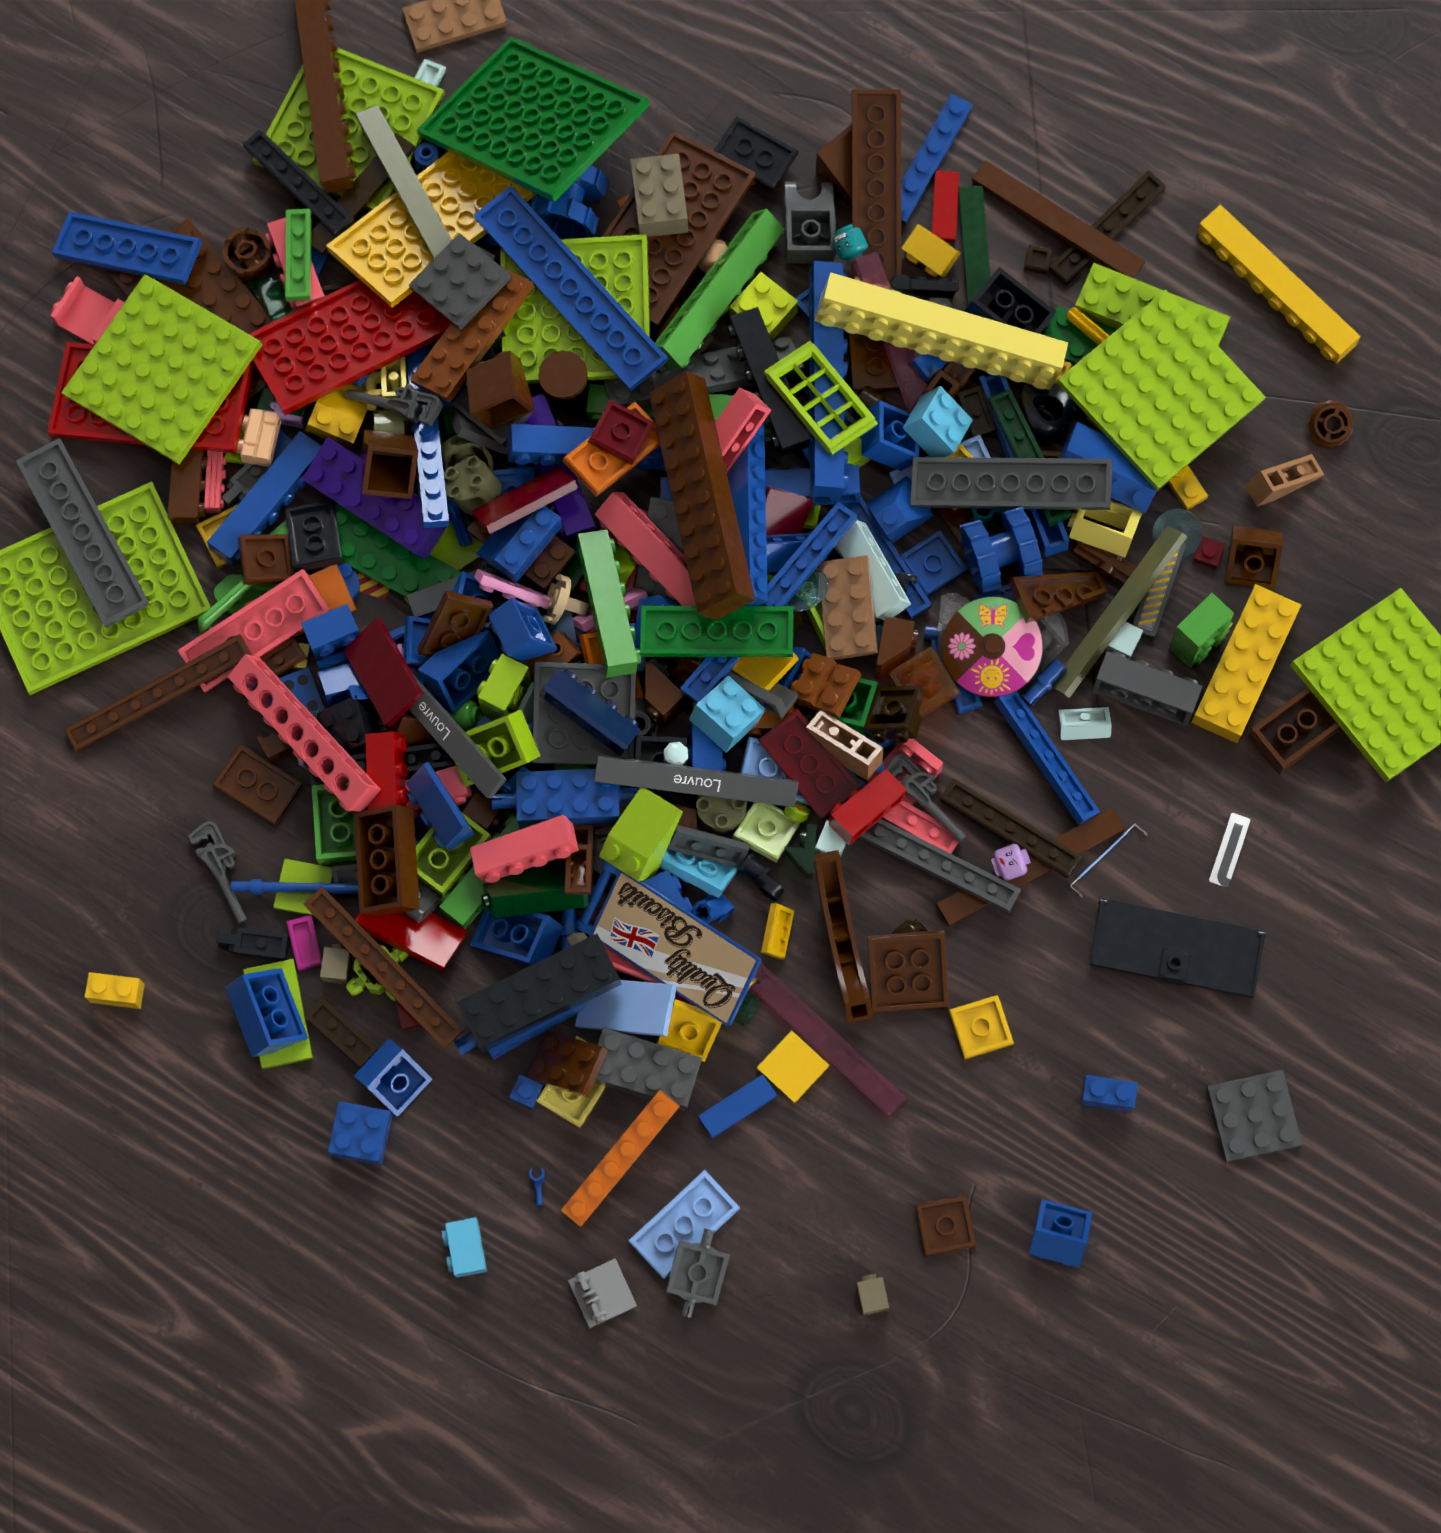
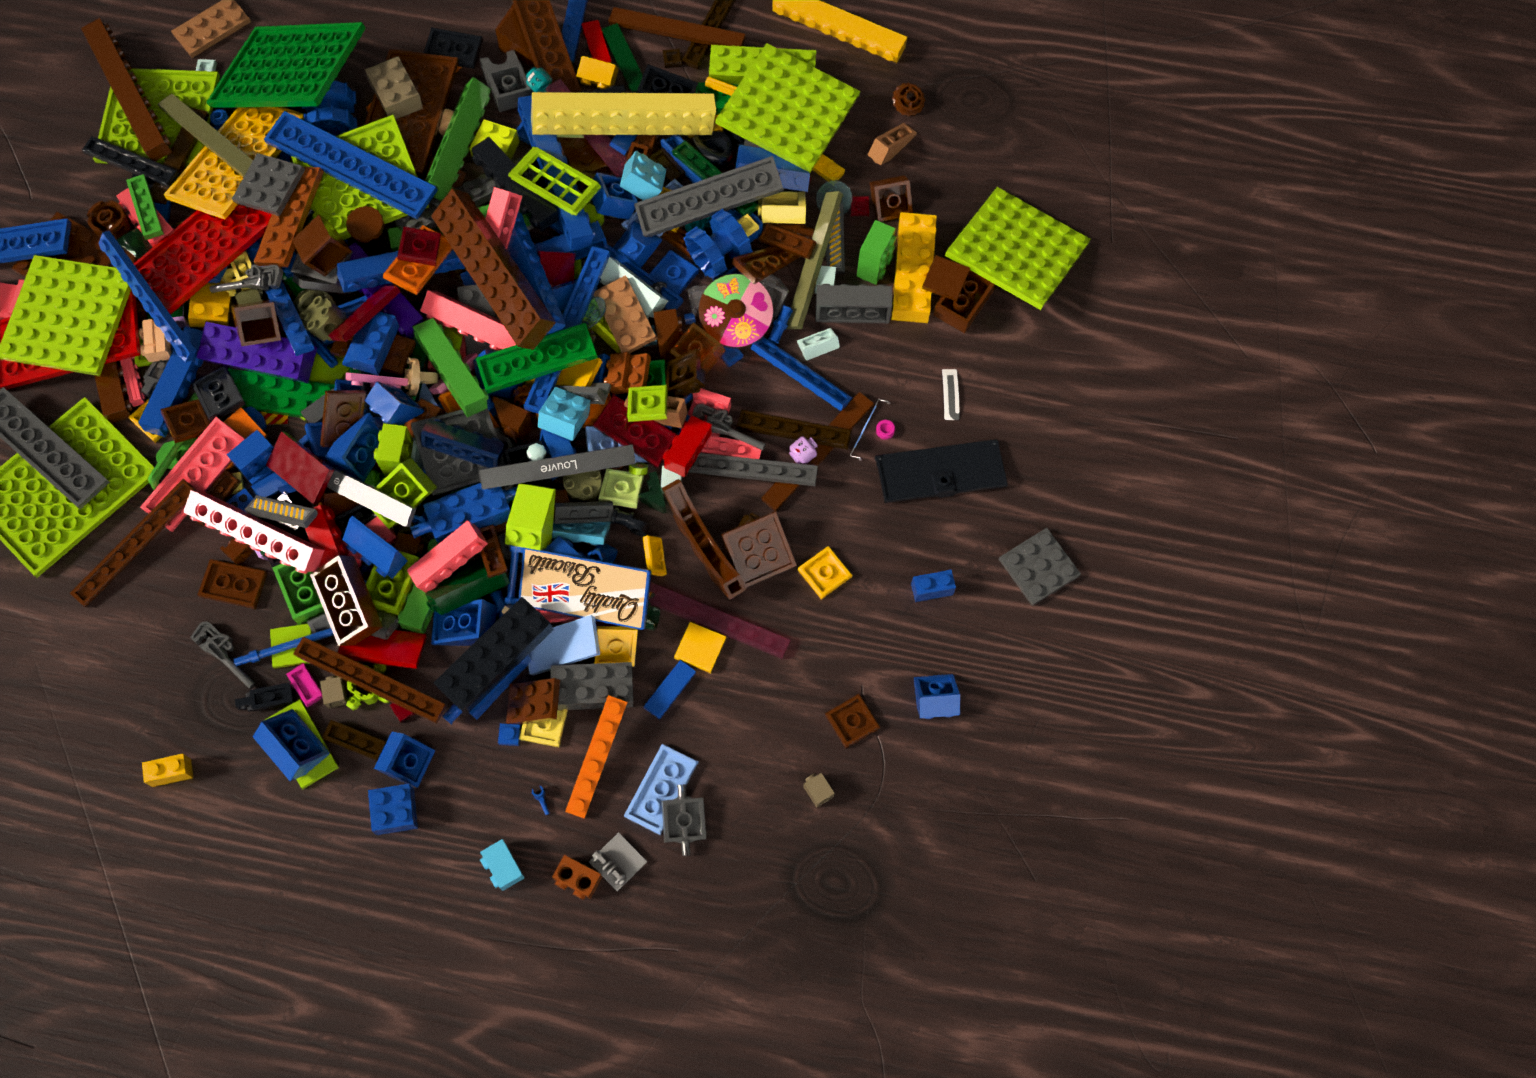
camera: 25 degrees left, 5 degrees down
(266, 382) = (147, 296): none -> blue plate
(344, 722) = (281, 511): none -> tile
(552, 1290) = (579, 873): none -> dark orange brick
(834, 737) = (647, 403): none -> lime tile
(1047, 538) = (748, 225): none -> light yellow tile
(1093, 574) = (787, 241): none -> reddish brown tile
(1127, 868) = (885, 429): none -> dark pink tile
(1278, 697) = (946, 278): none -> reddish brown tile

